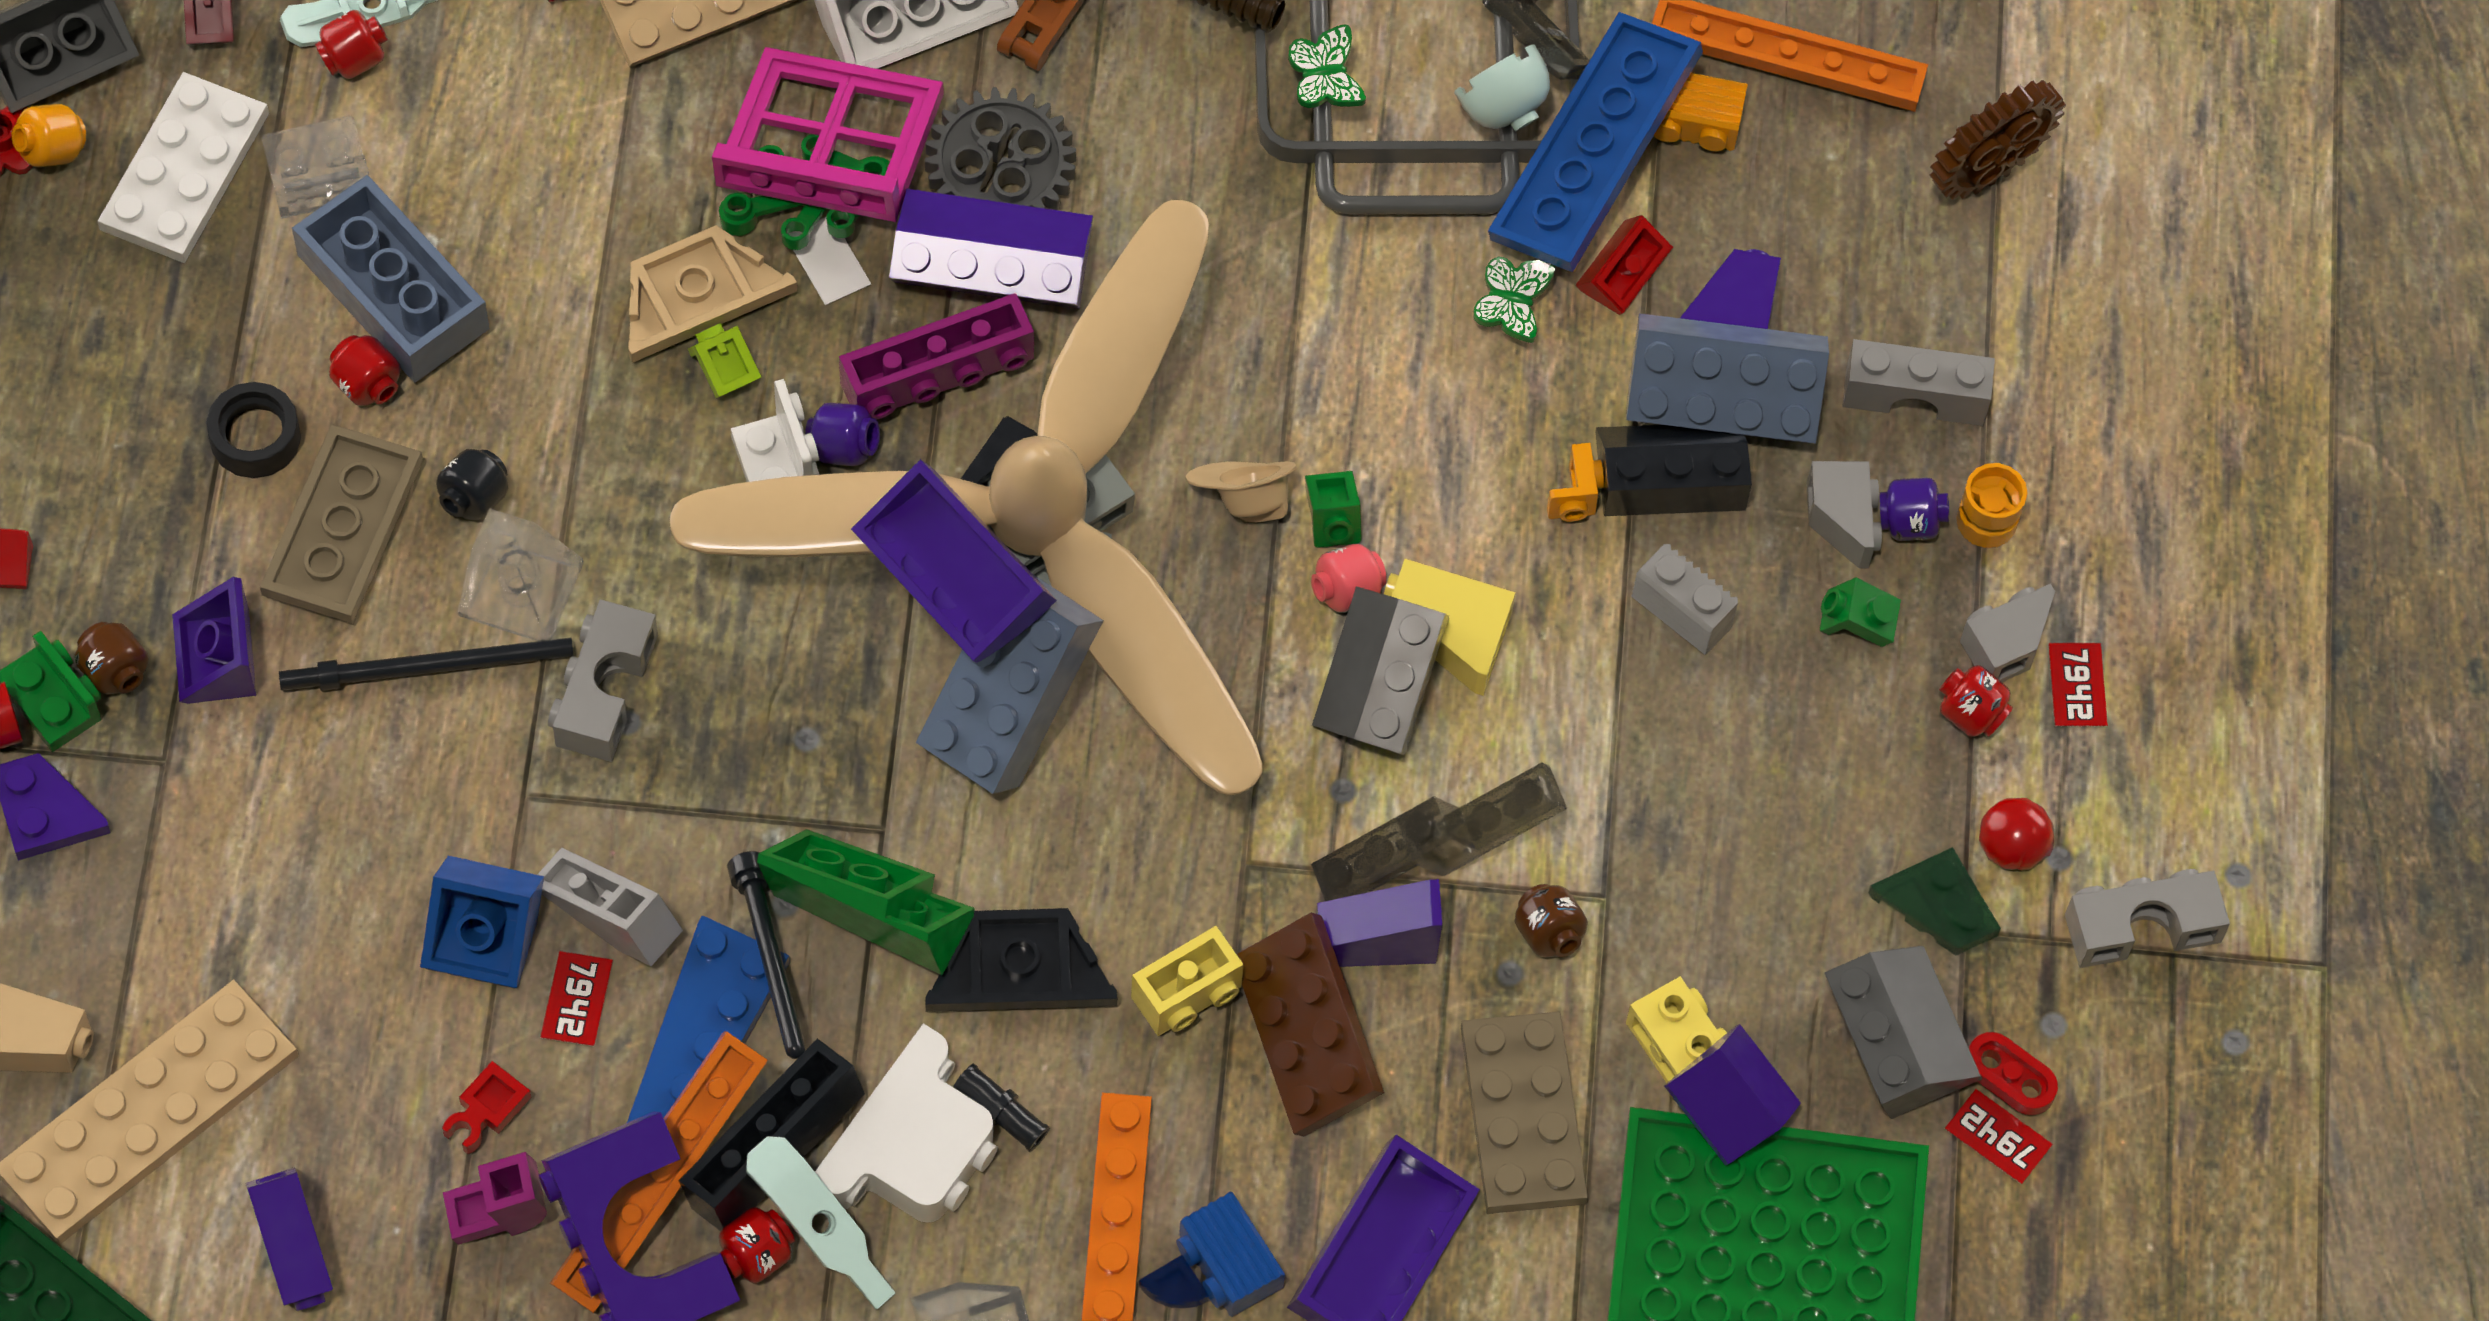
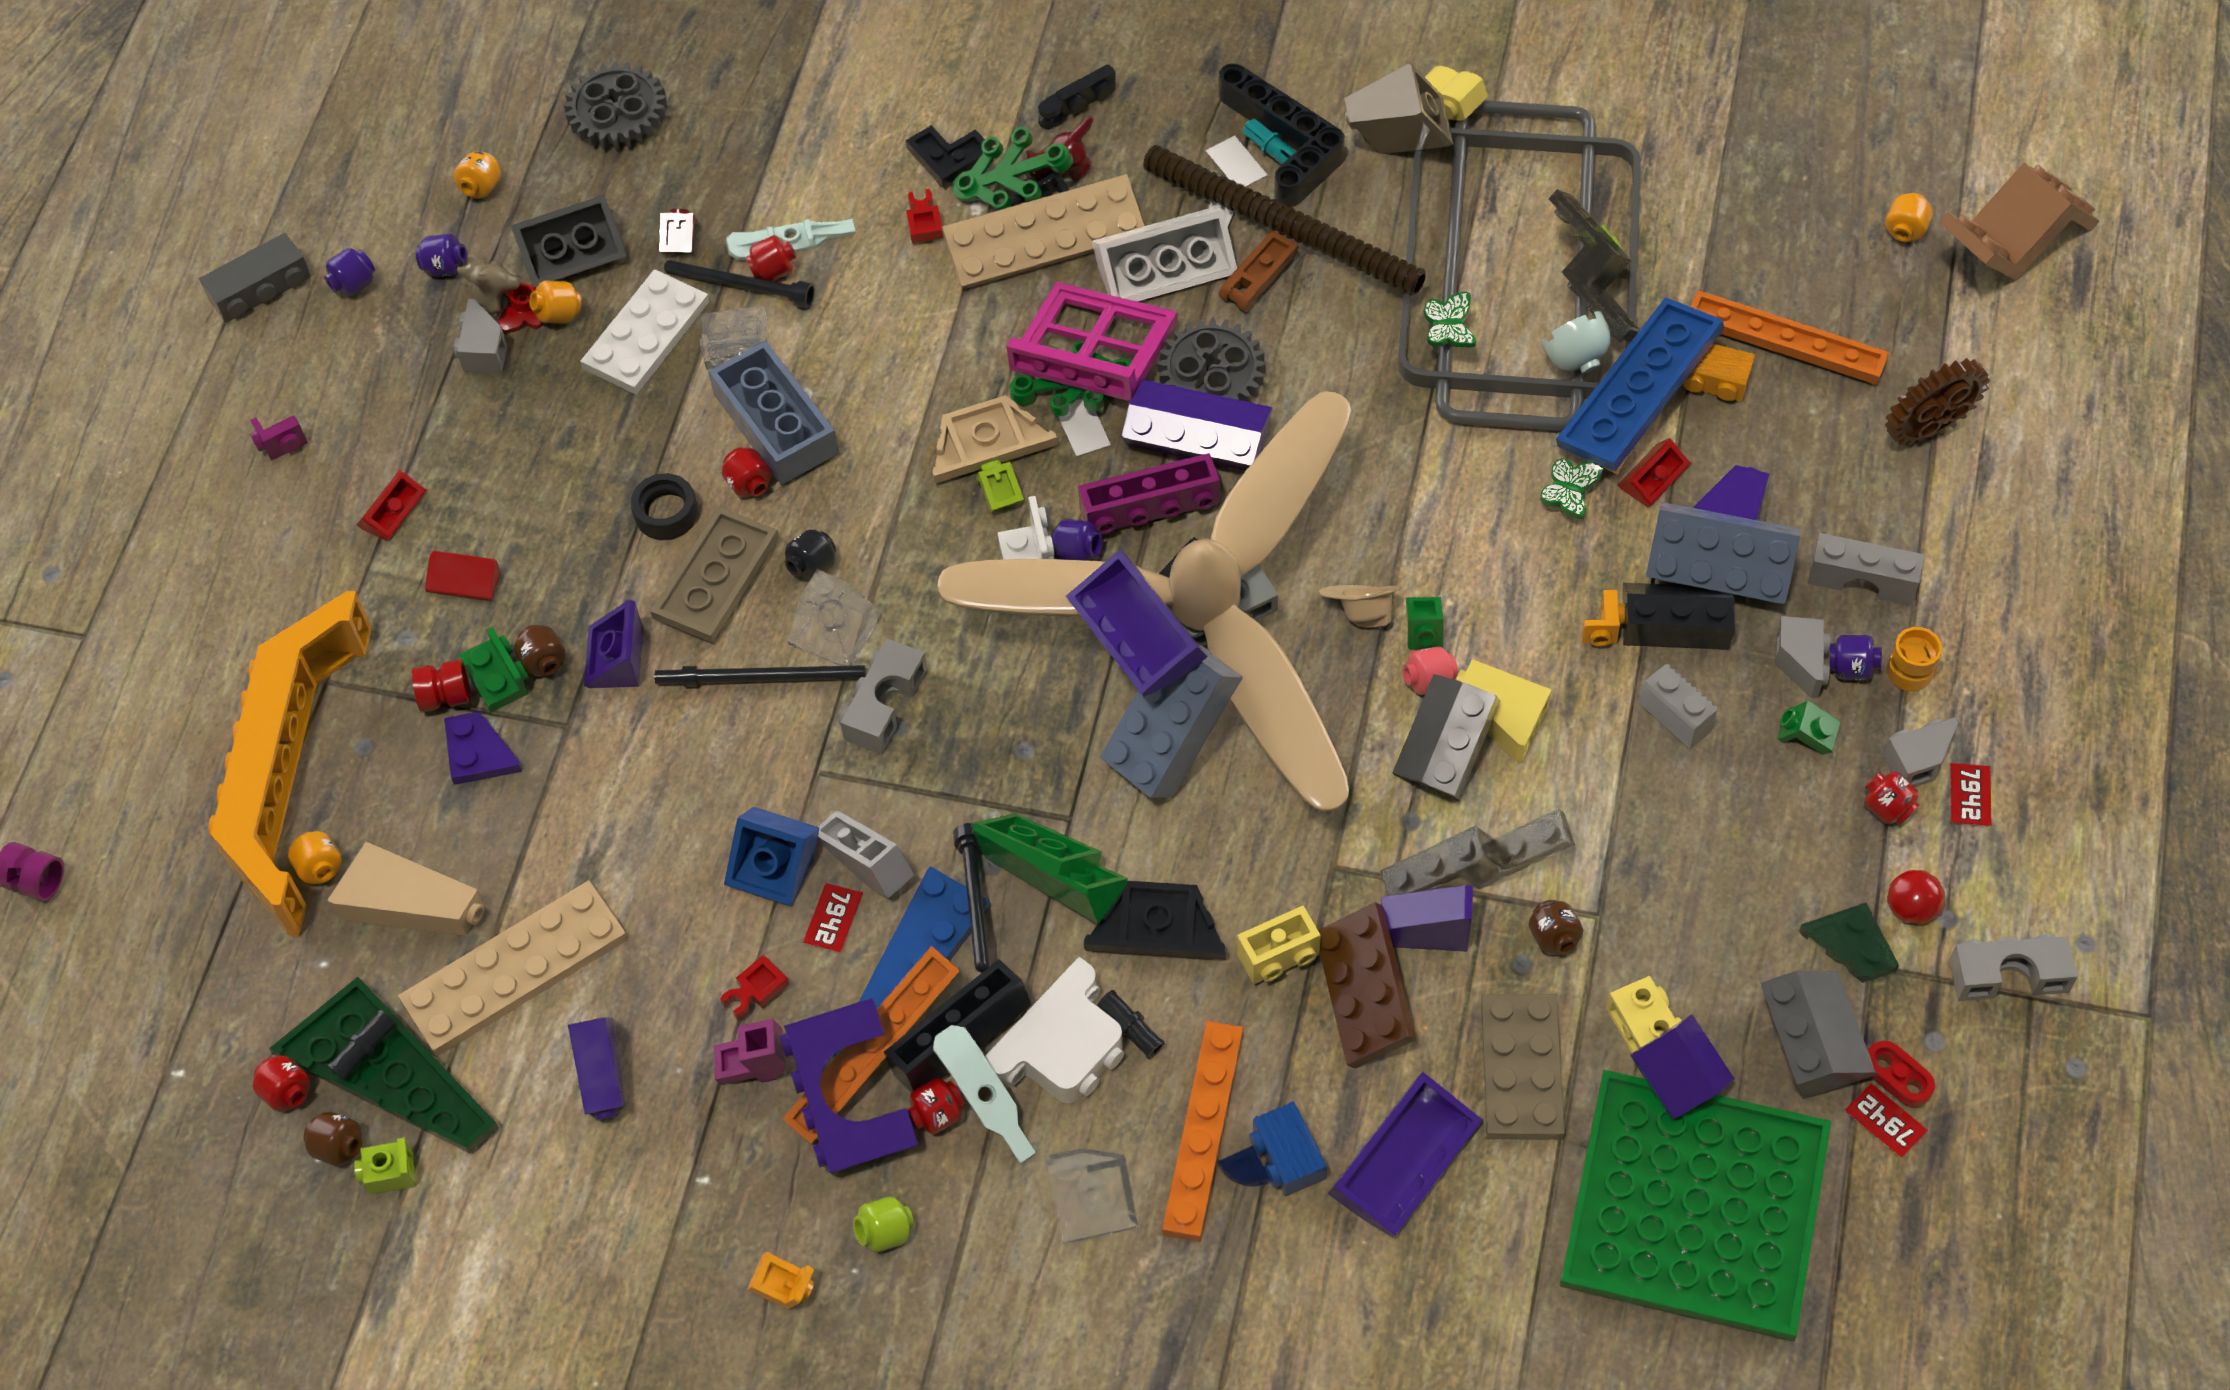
camera: 15 degrees right, 5 degrees down
(398, 92) = (799, 293): none -> black piece

